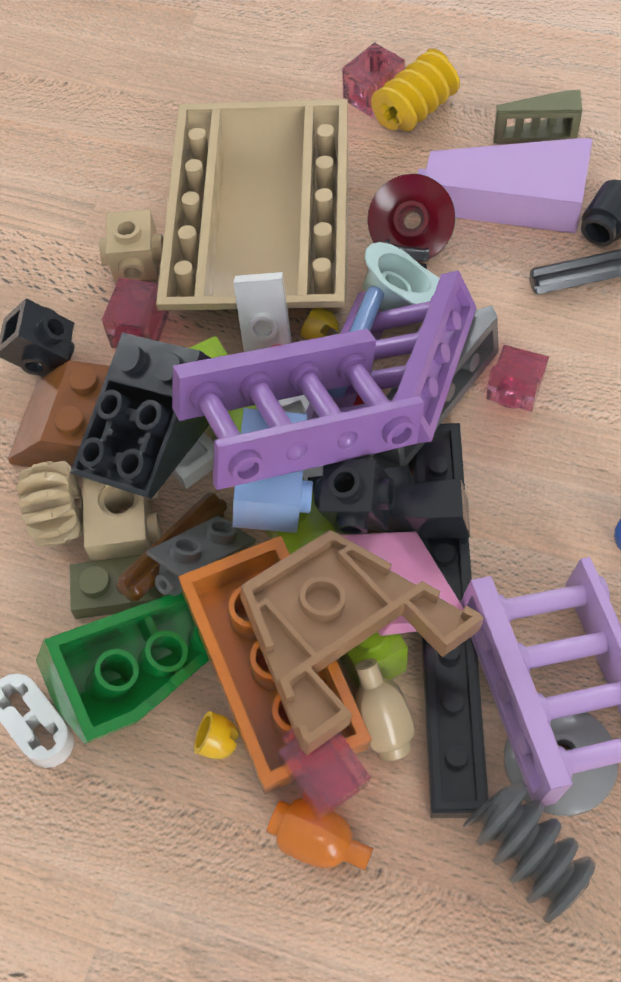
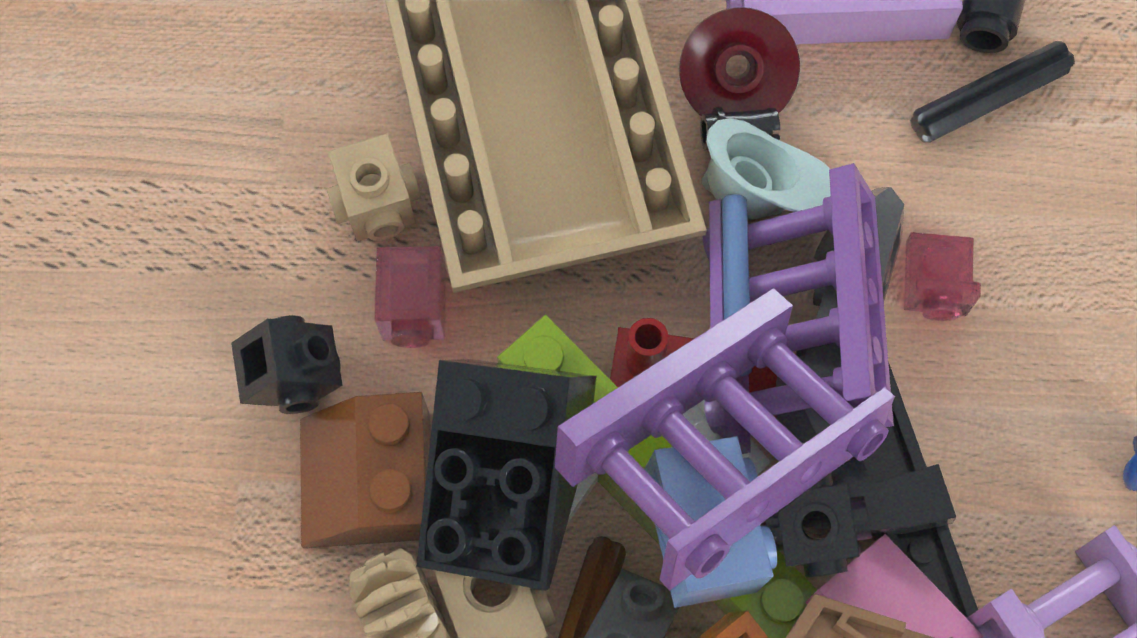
camera: 20 degrees left, 10 degrees up
(262, 310) = (604, 277): white plate -> none
(319, 323) = (660, 261): yellow hinge -> none

